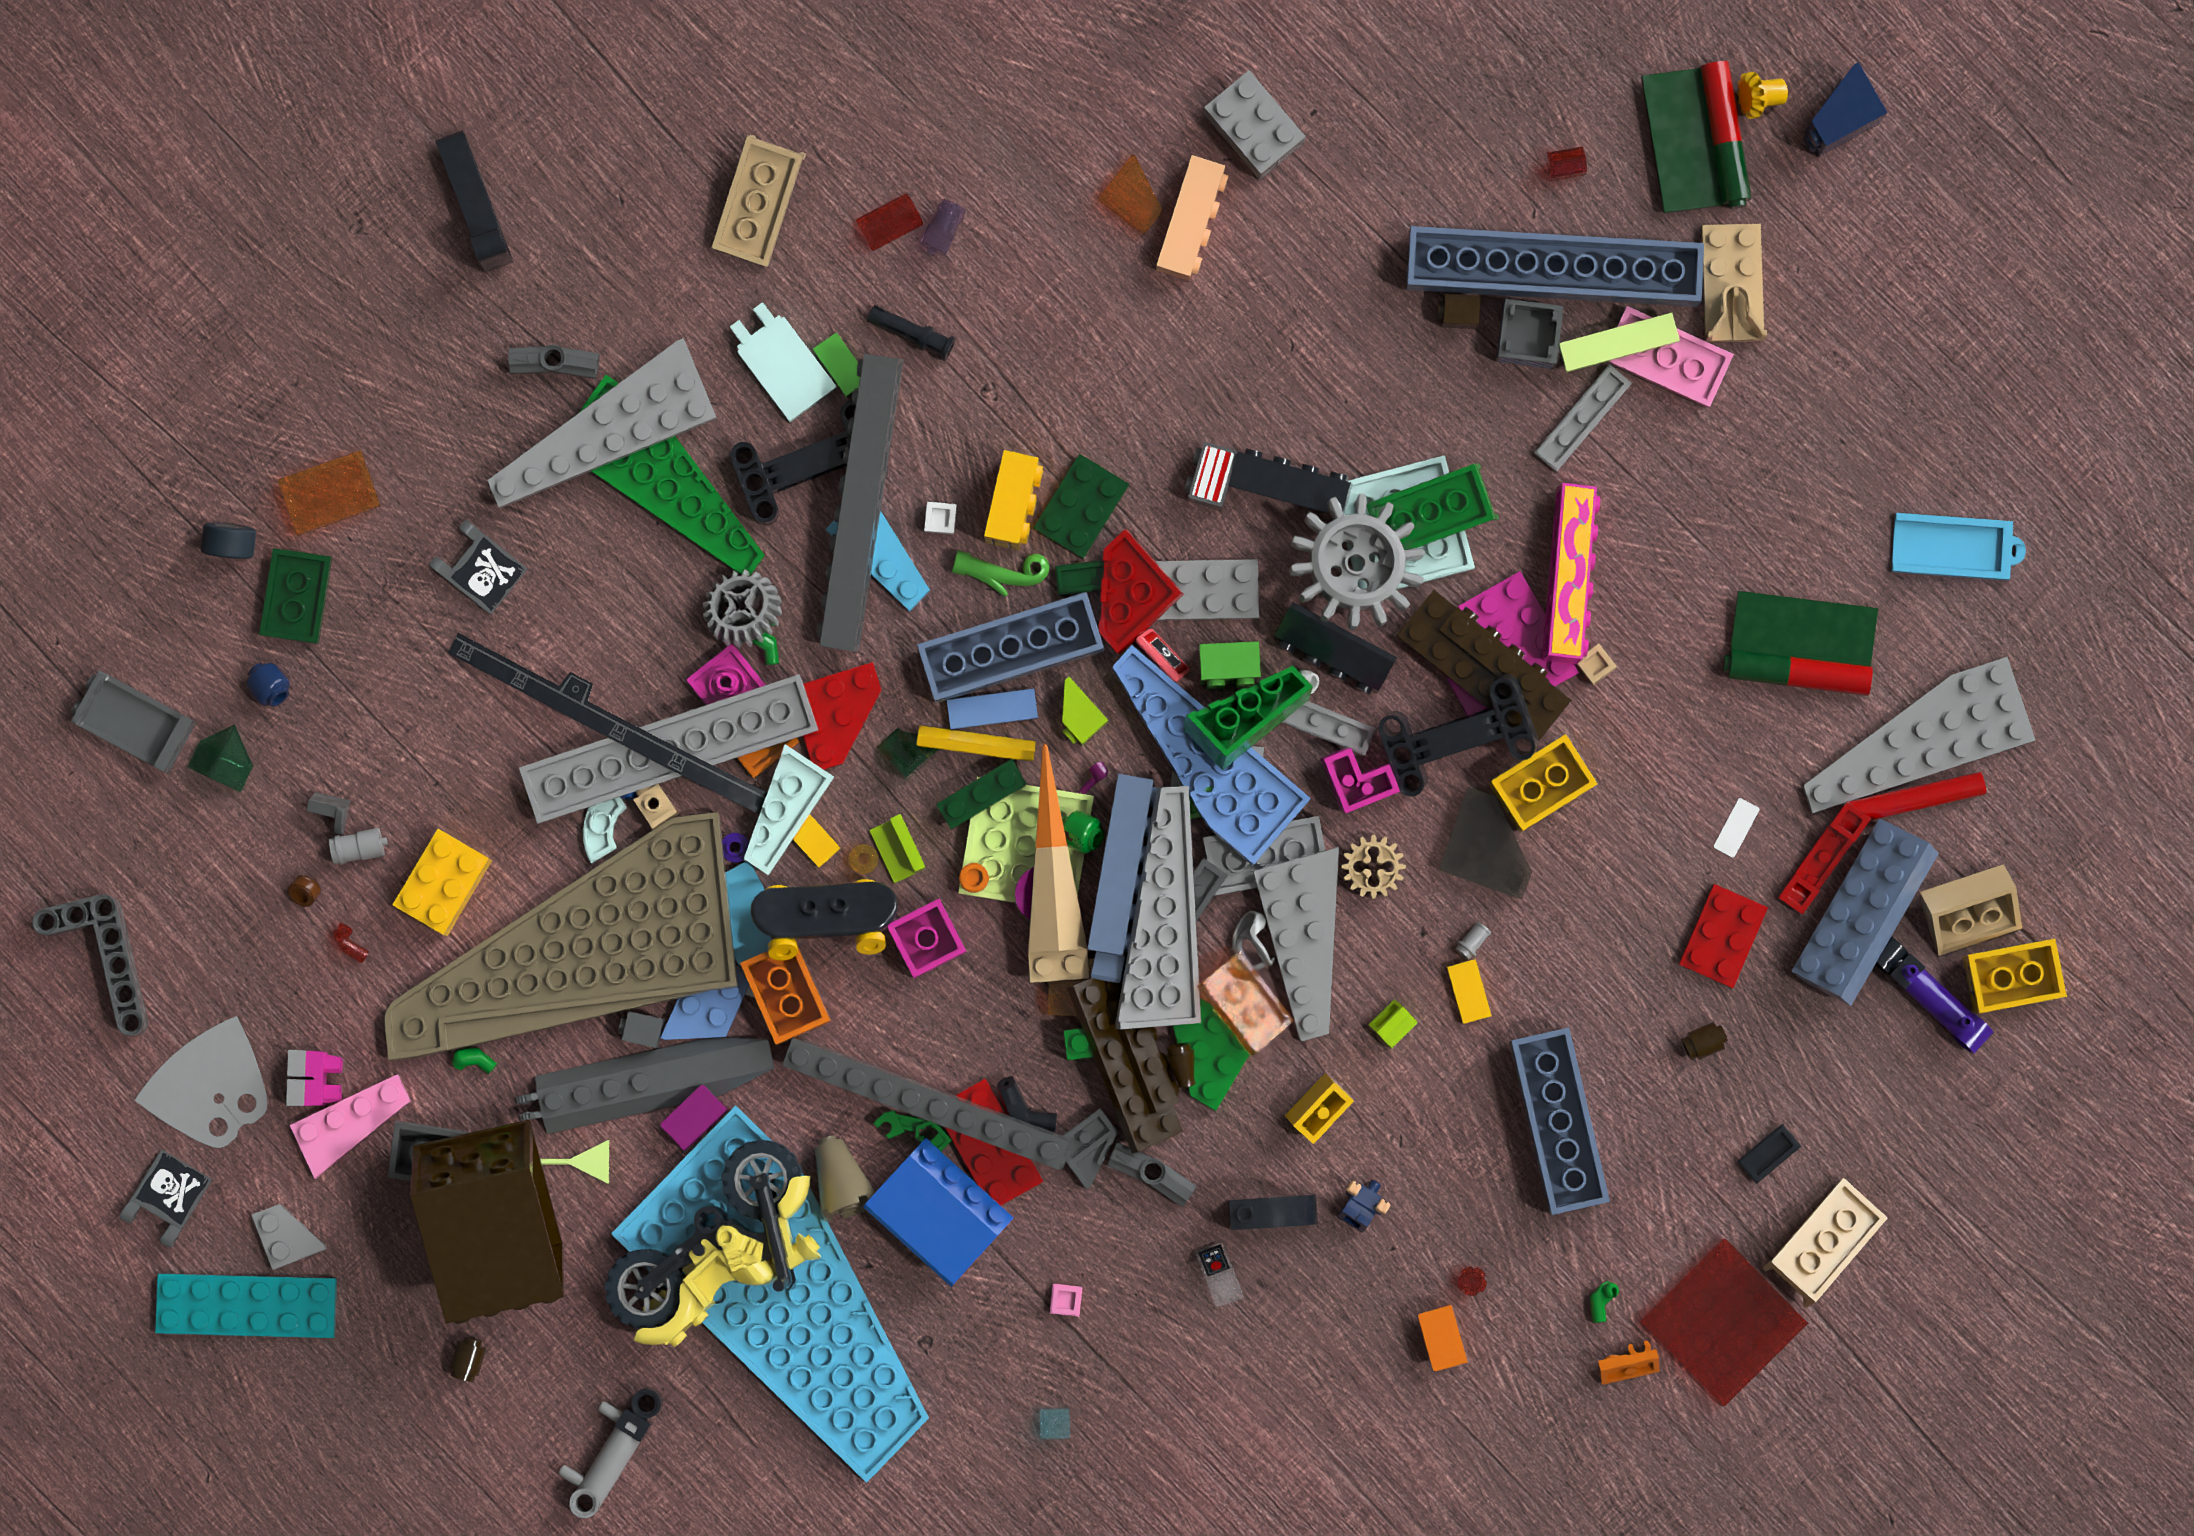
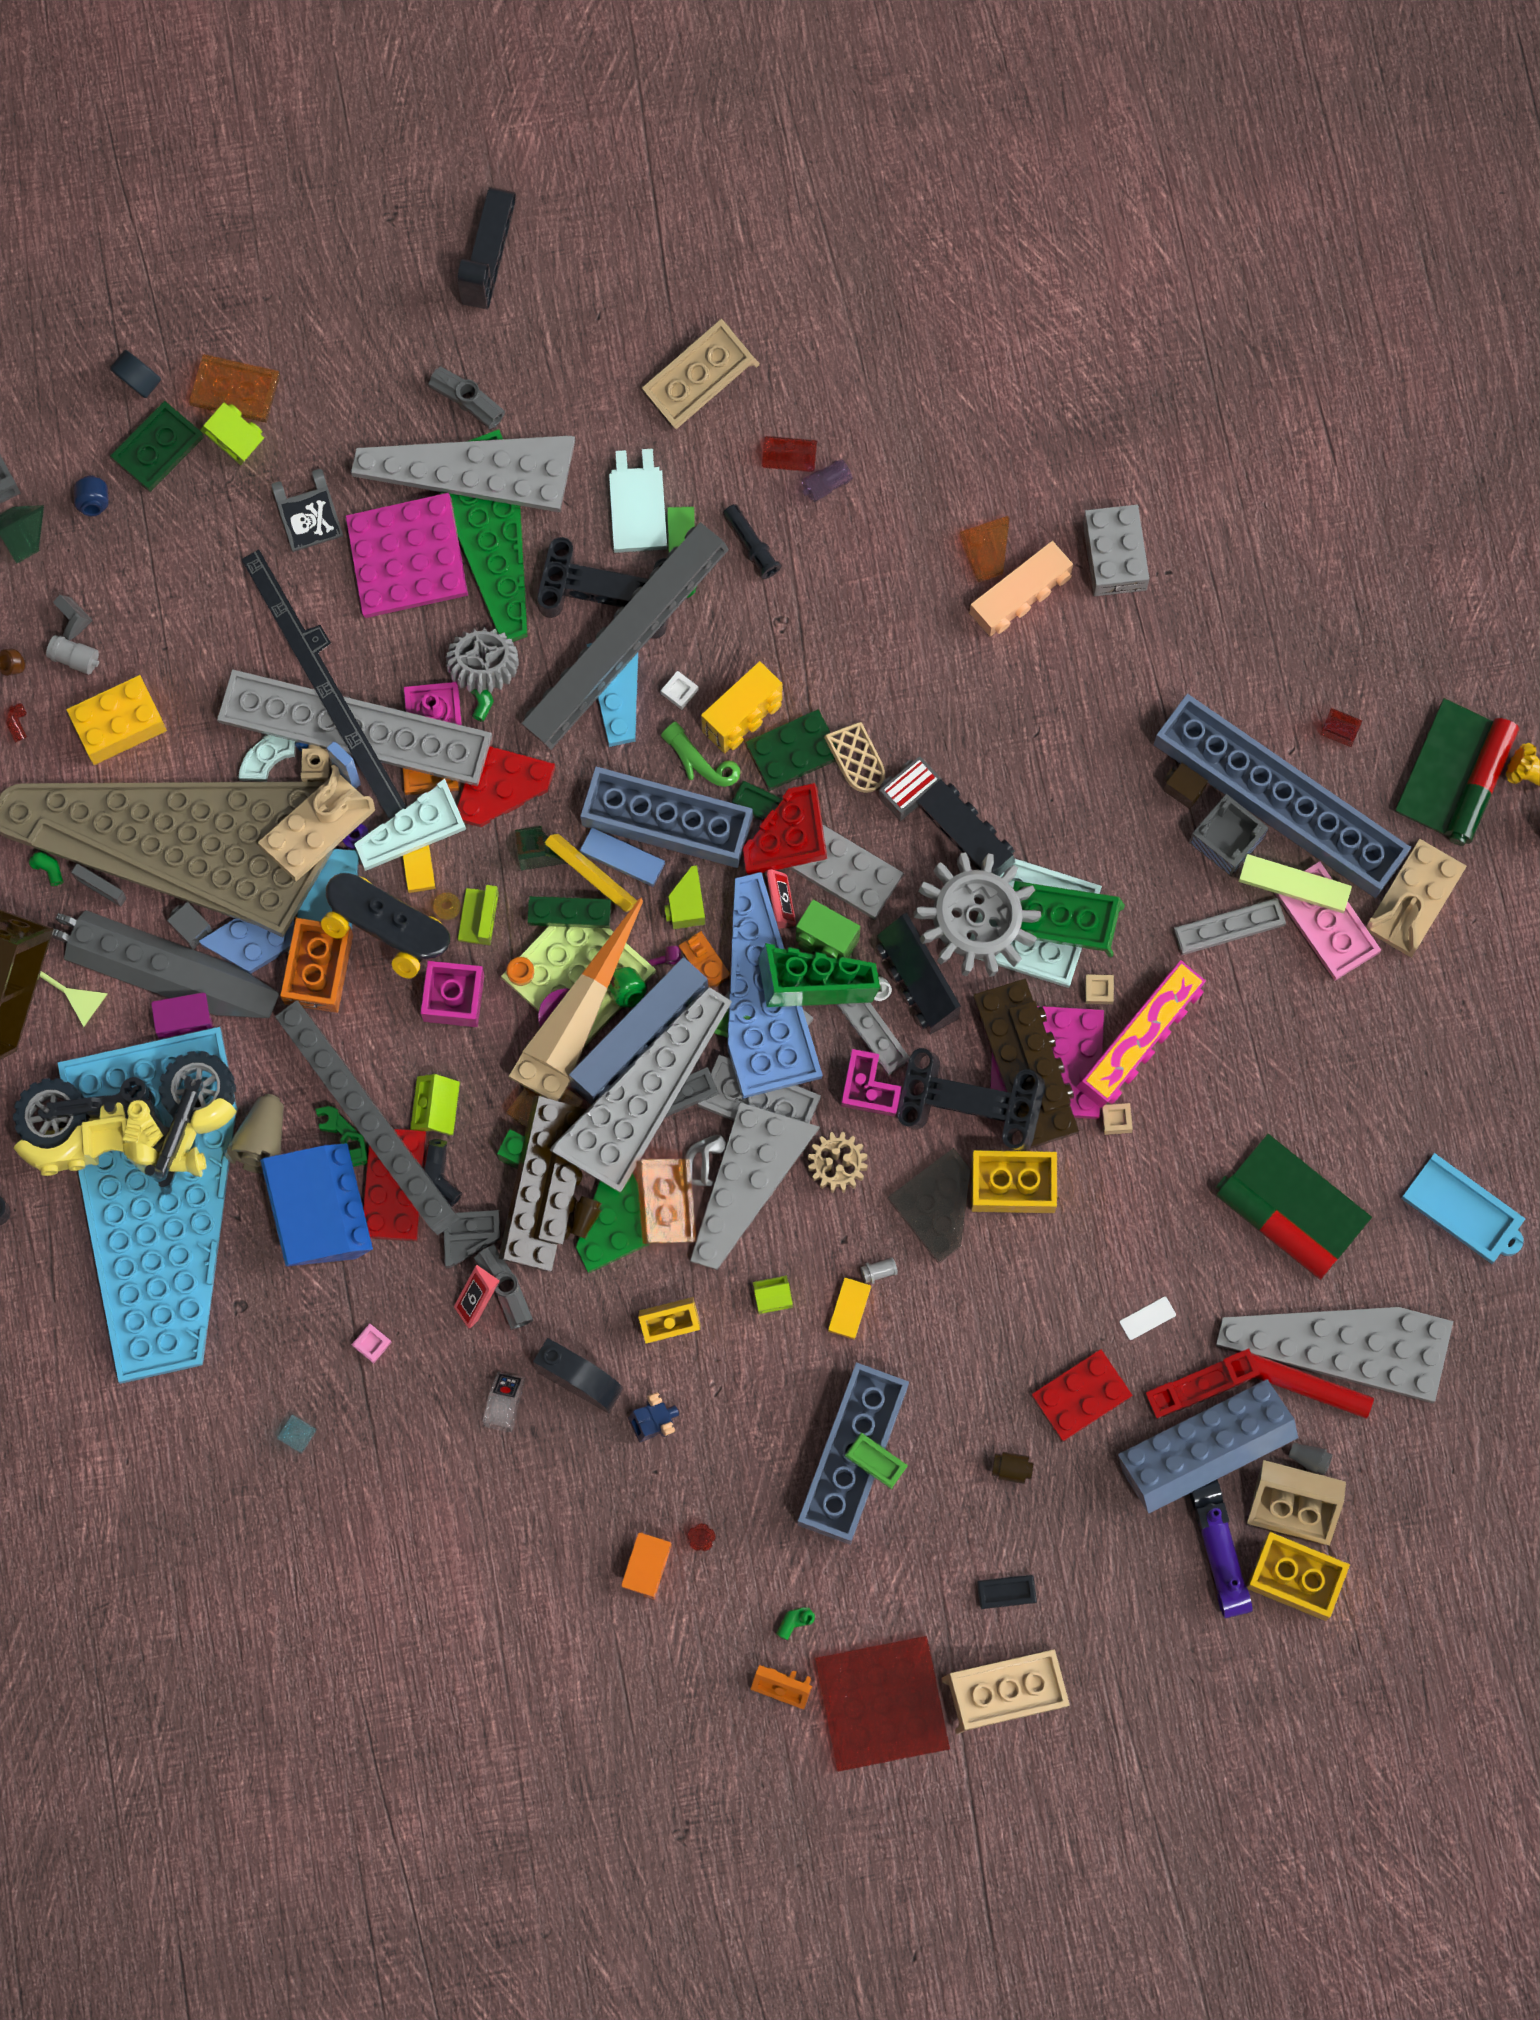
camera: 35 degrees right, 10 degrees down
(360, 539) = (233, 433): none -> lime brick
(533, 1046) = (98, 885): none -> dark grey tile
(602, 551) = (406, 555): none -> dark pink plate
(687, 793) = (344, 763): none -> medium blue tile
(698, 864) = (317, 825): none -> tan plate
(977, 1049) = (435, 1104): none -> lime panel
(1108, 967) = (576, 1101): sand blue slope -> none
(1130, 757) = (705, 959): none -> orange plate
(1132, 1199) = (475, 1296): none -> slope
(1159, 465) = (844, 731): none -> tan window
(1504, 554) = (1099, 989): none -> tan plate
(1586, 1117) = (876, 1461): none -> bright green tile
(1959, 861) = (1312, 1458): none -> dark grey cone

